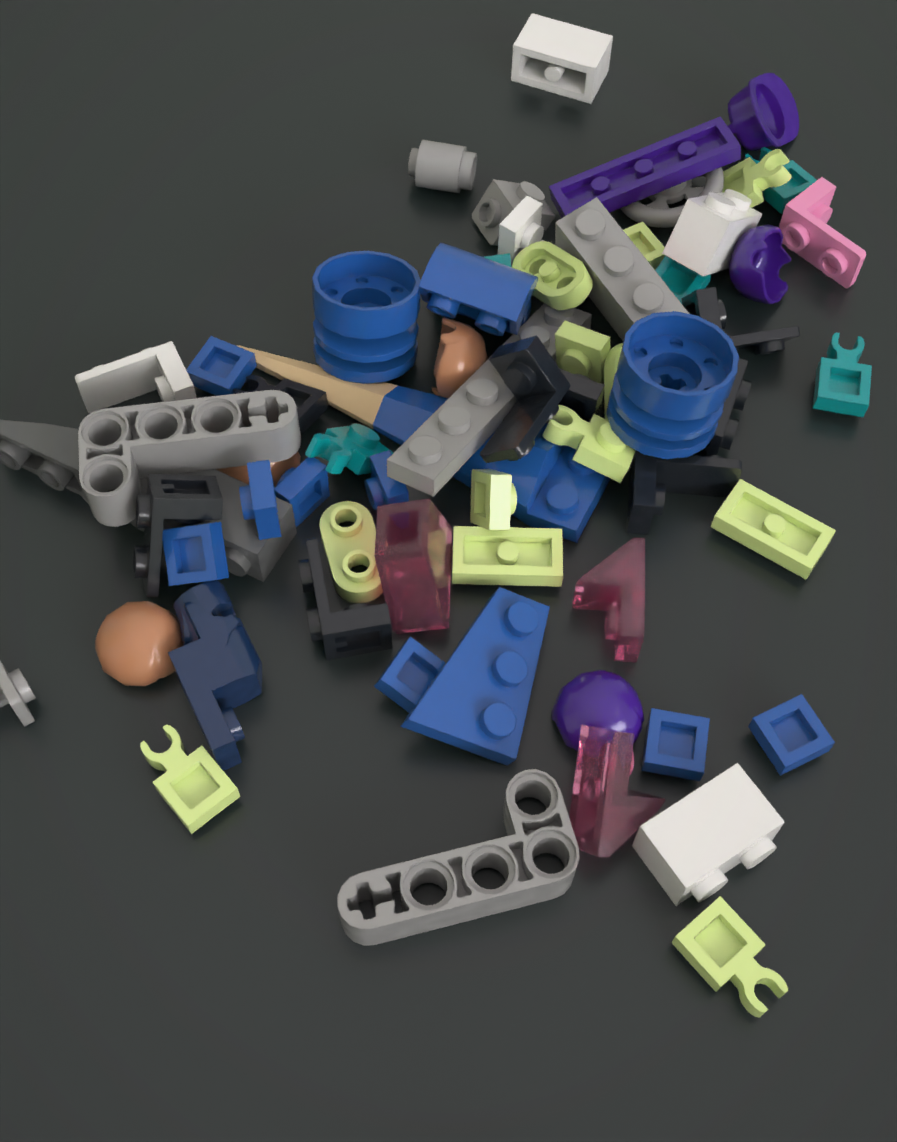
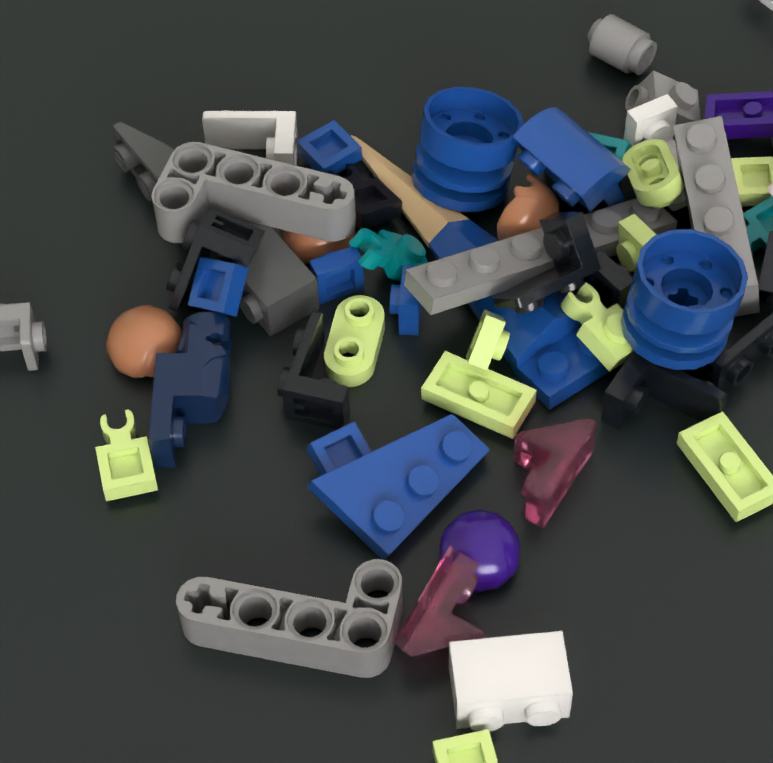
camera: 30 degrees right, 5 degrees down
(259, 500) = (289, 263): blue plate -> none
(414, 564) = (392, 366): clear pink slope -> none
(675, 744) = (528, 600): blue plate -> none
(791, 734) = (635, 637): blue plate -> none

